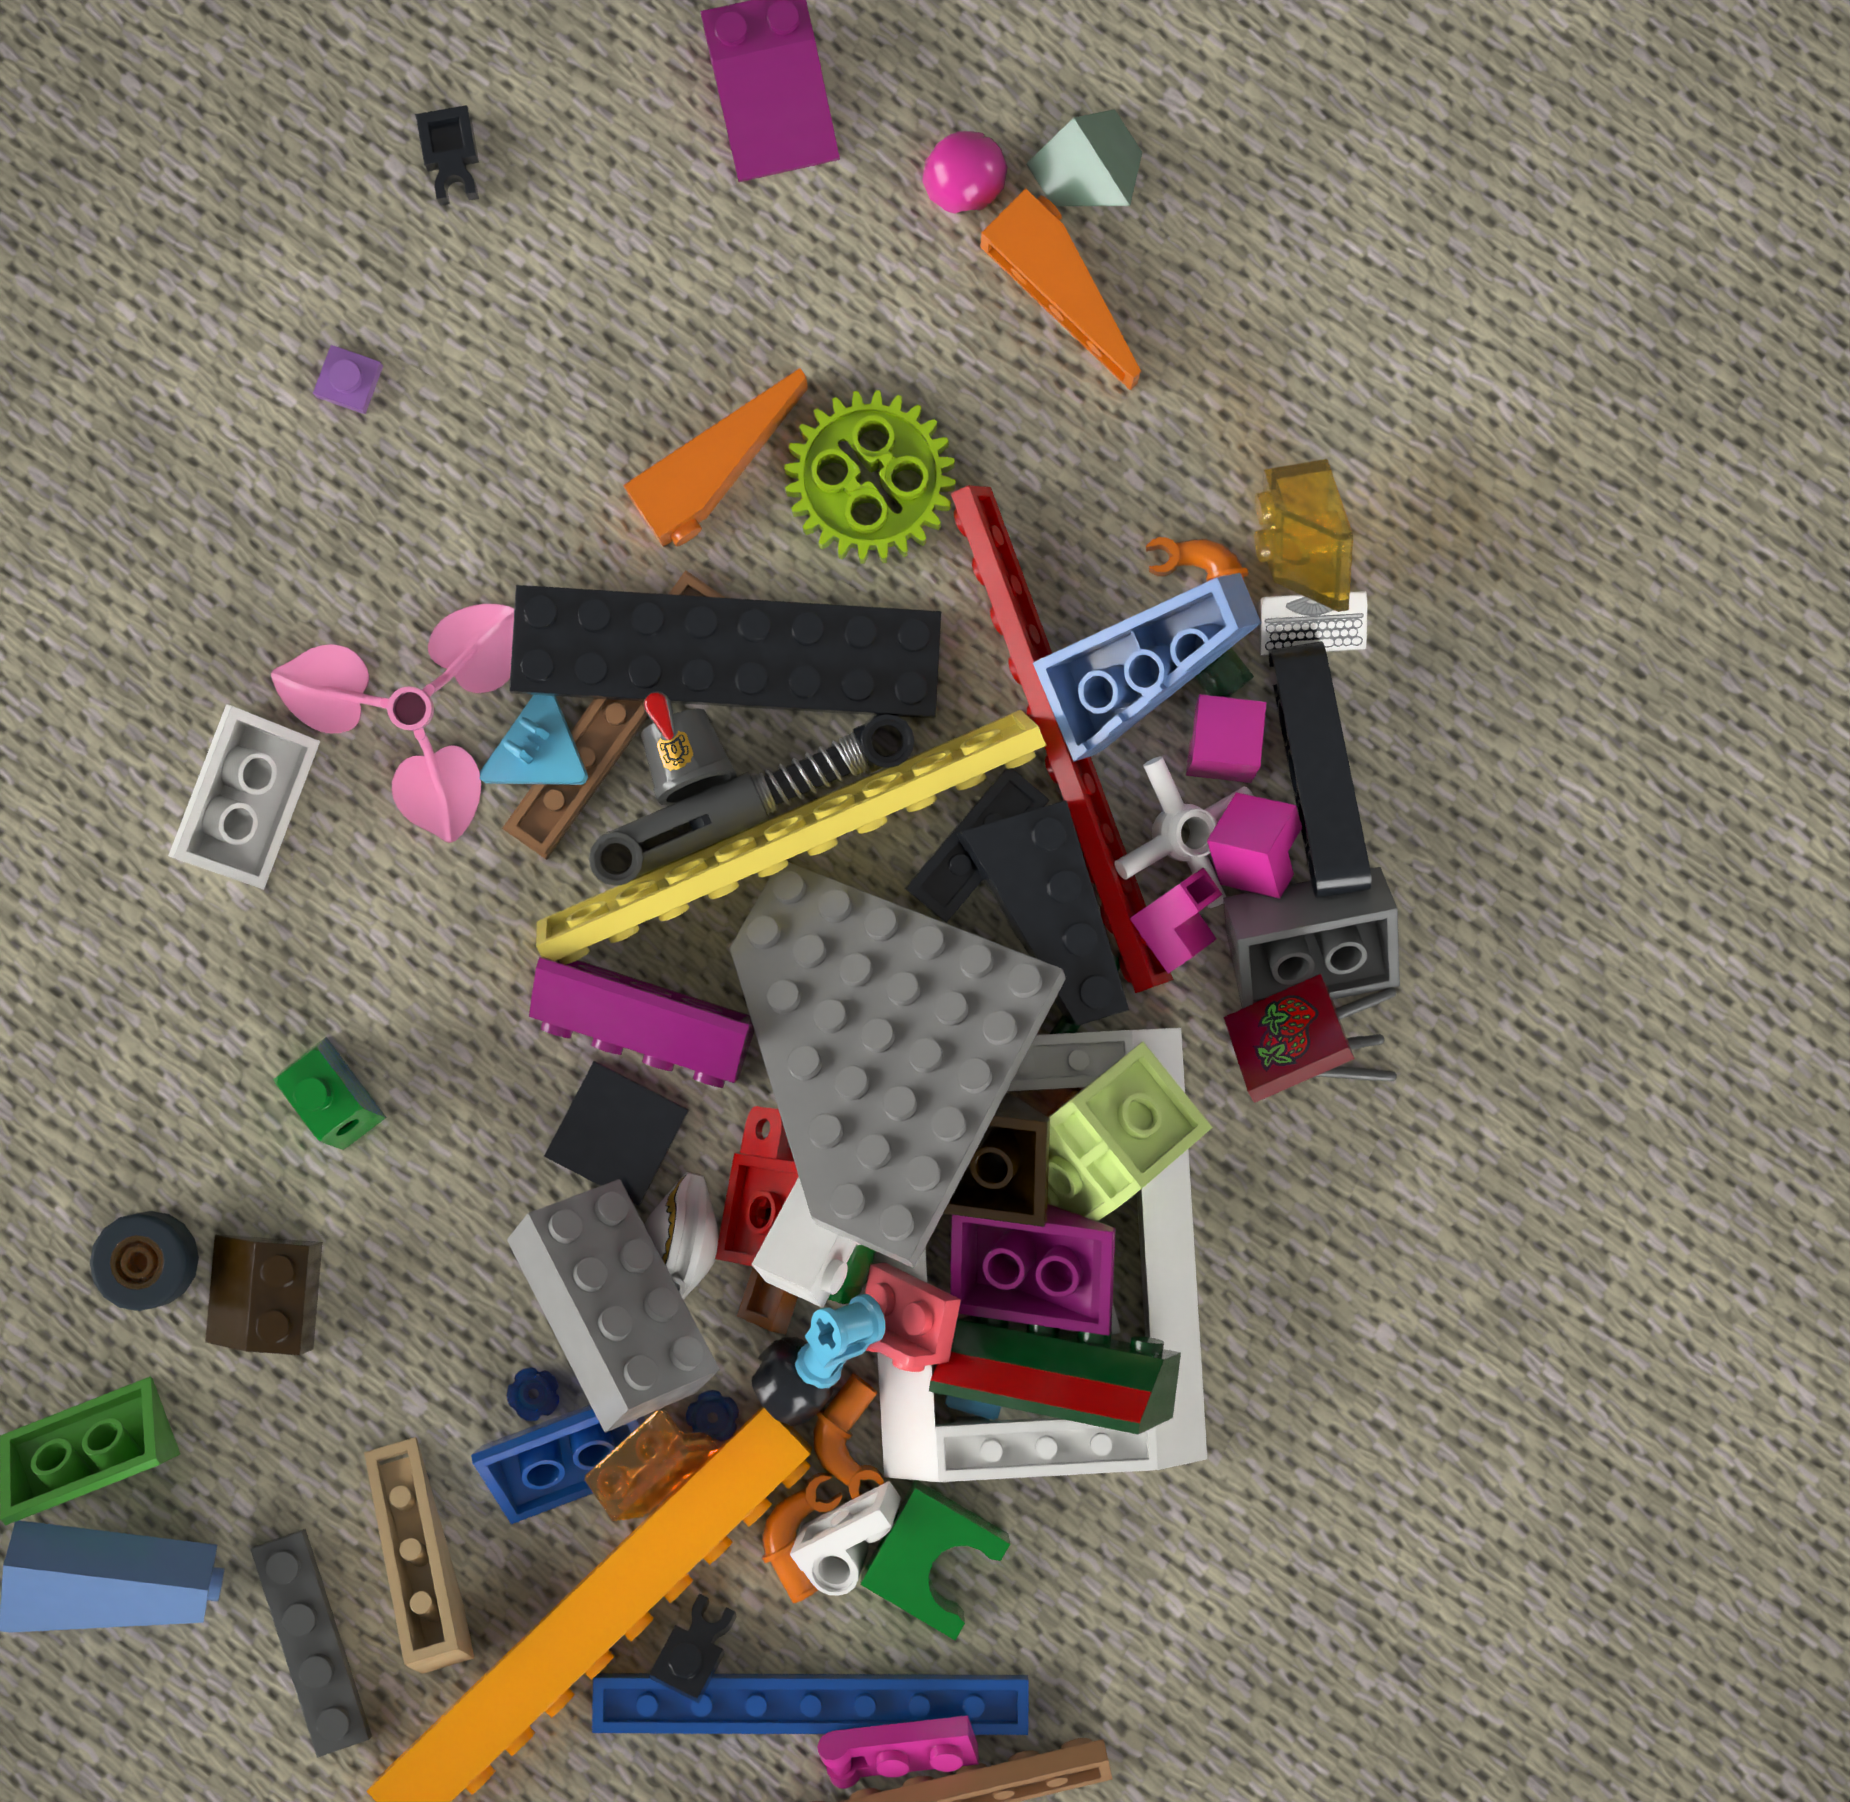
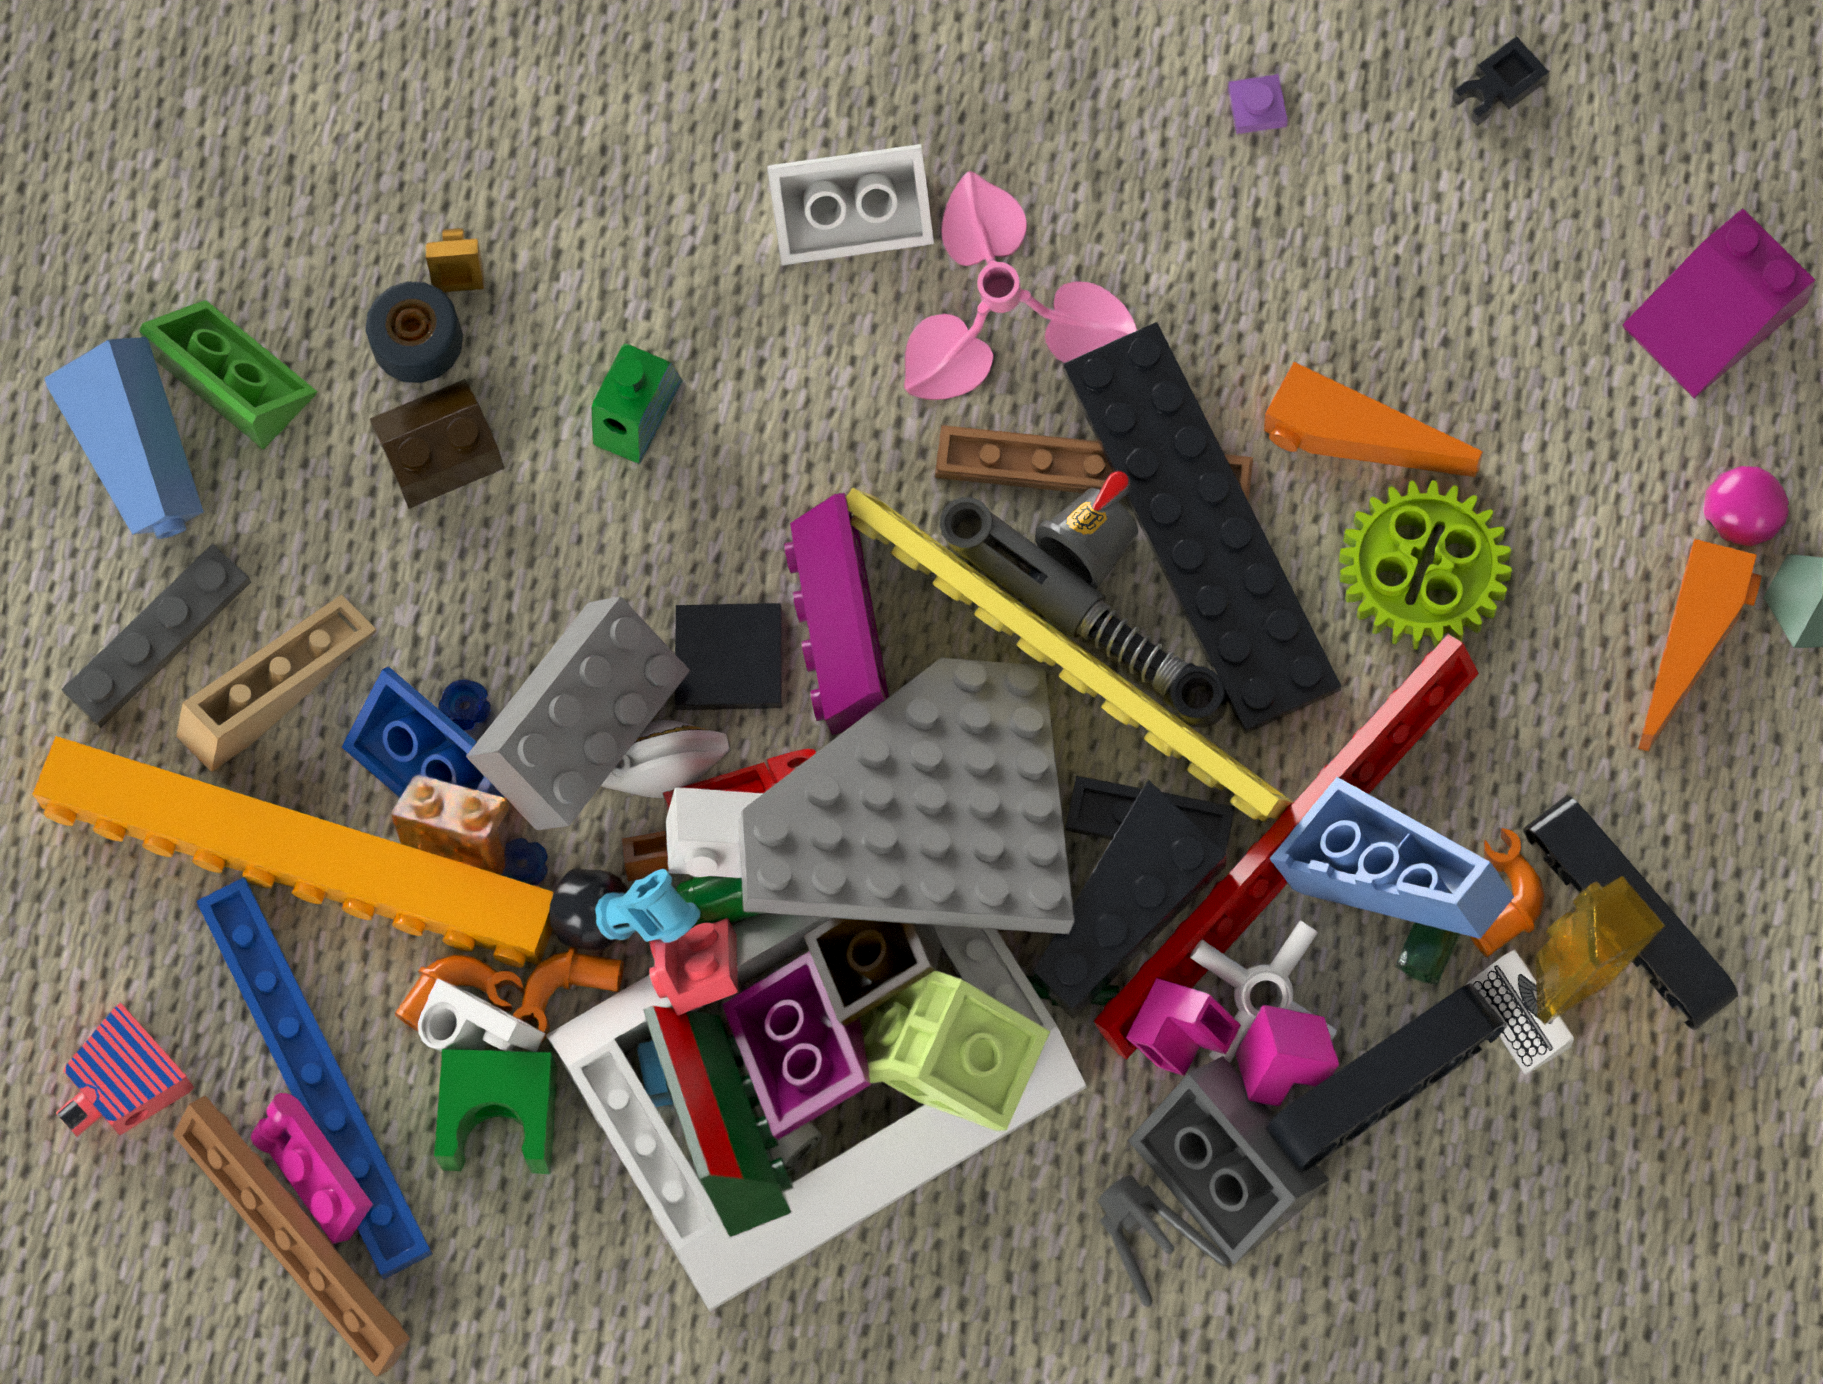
camera: 70 degrees right, 15 degrees down
(95, 1188) = (455, 262): none -> pearl gold tile
(536, 749) = (1026, 417): medium azure piece -> none
(691, 1656) = (305, 950): black plate -> none
(1226, 739) = (1367, 984): dark pink piece -> none
(1229, 485) = (1674, 958): none -> black beam
(1288, 1038) = (1126, 1172): dark red tile -> none

